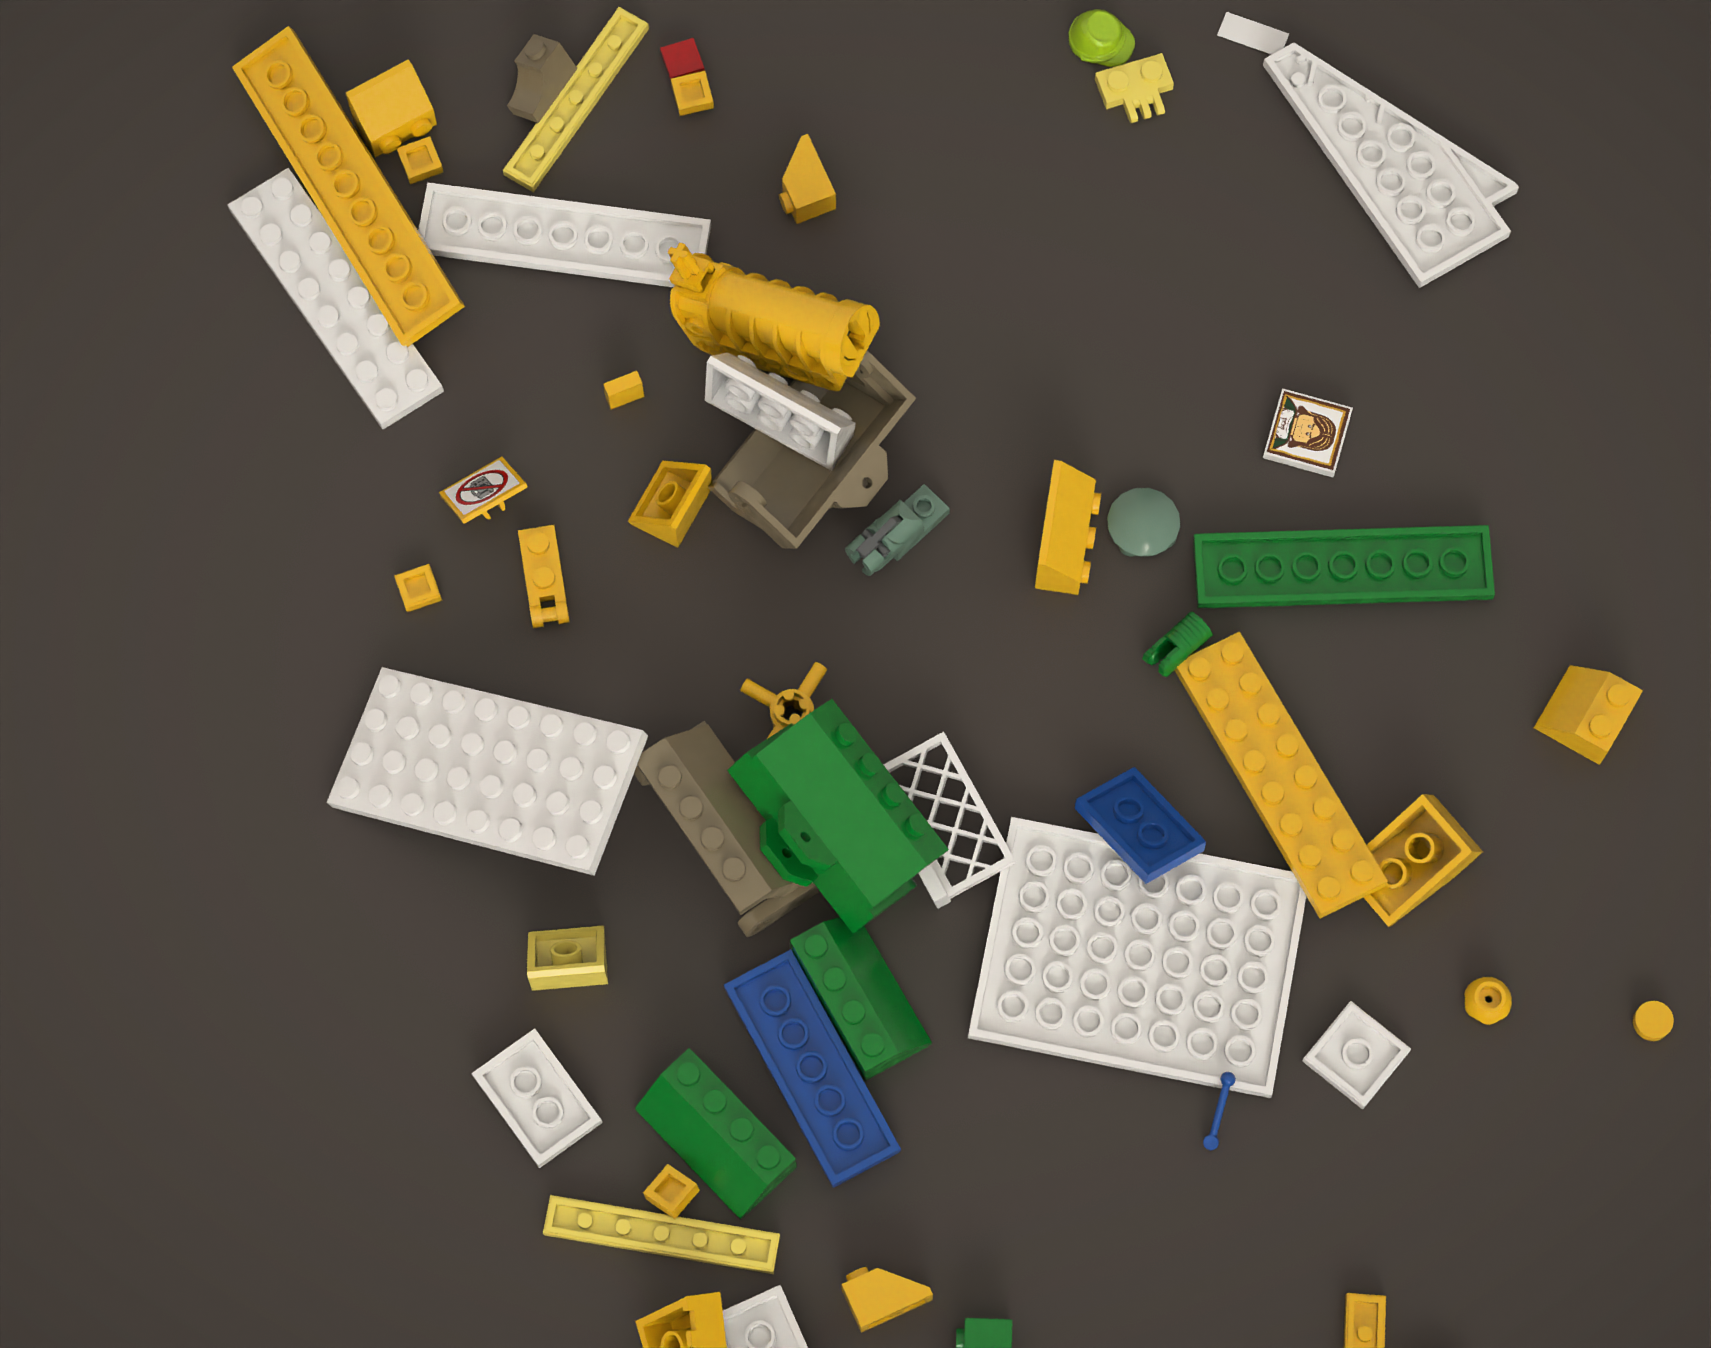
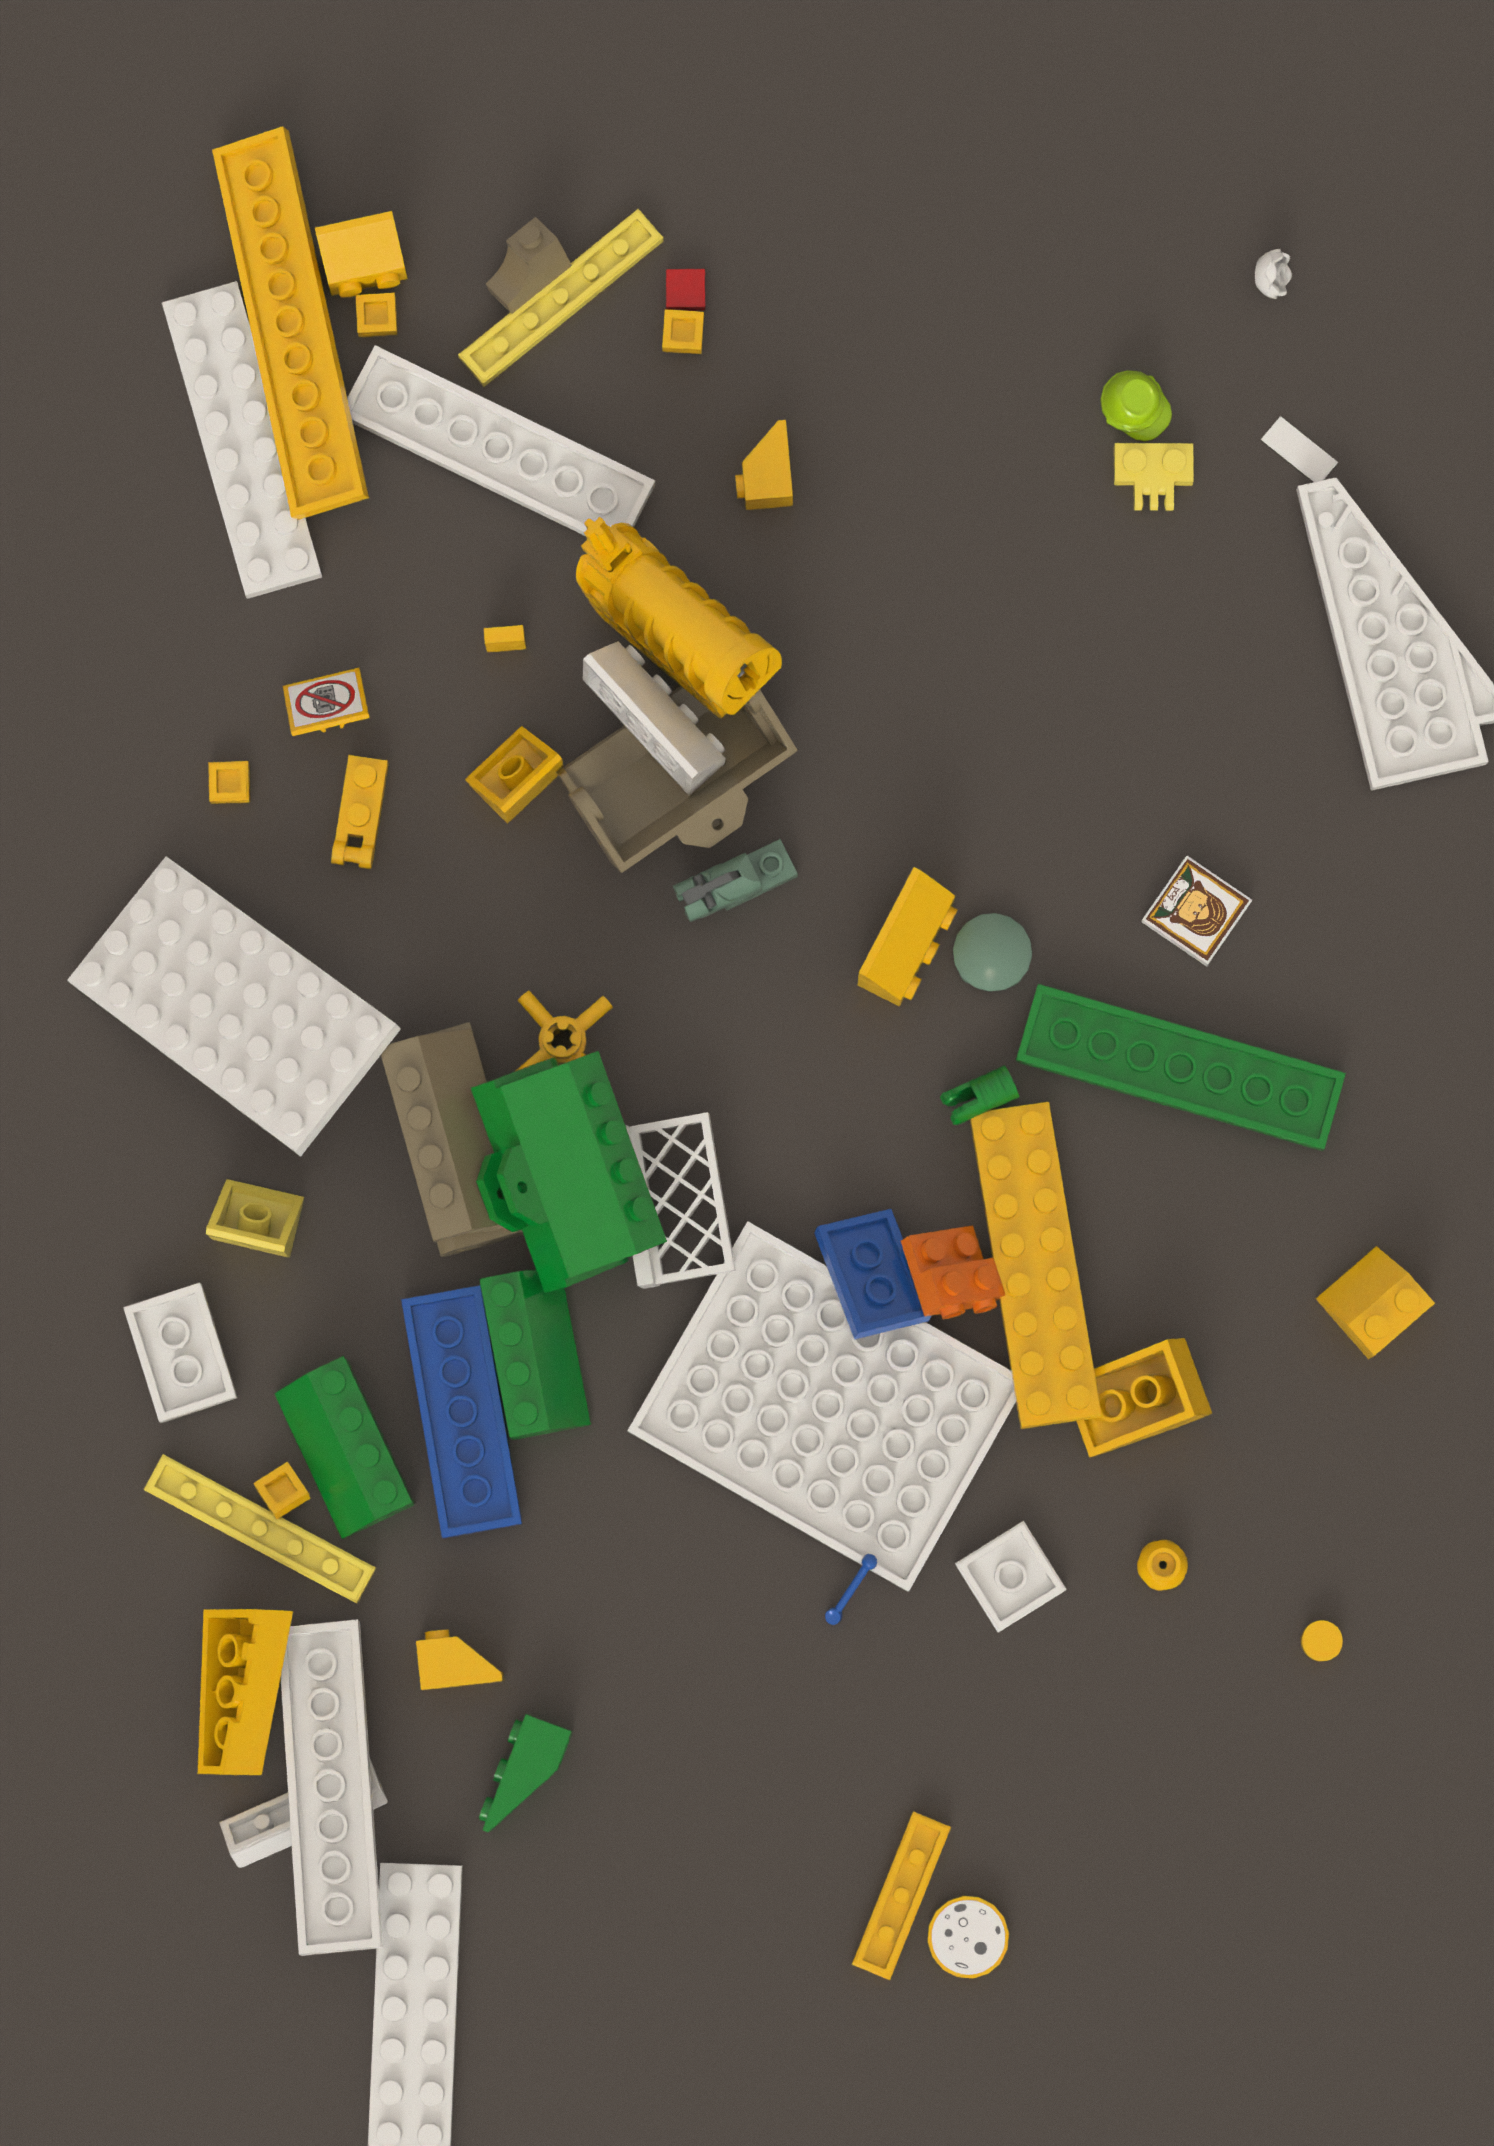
camera: 20 degrees right, 10 degrees up
(1209, 801) = (952, 1272): none -> orange plate

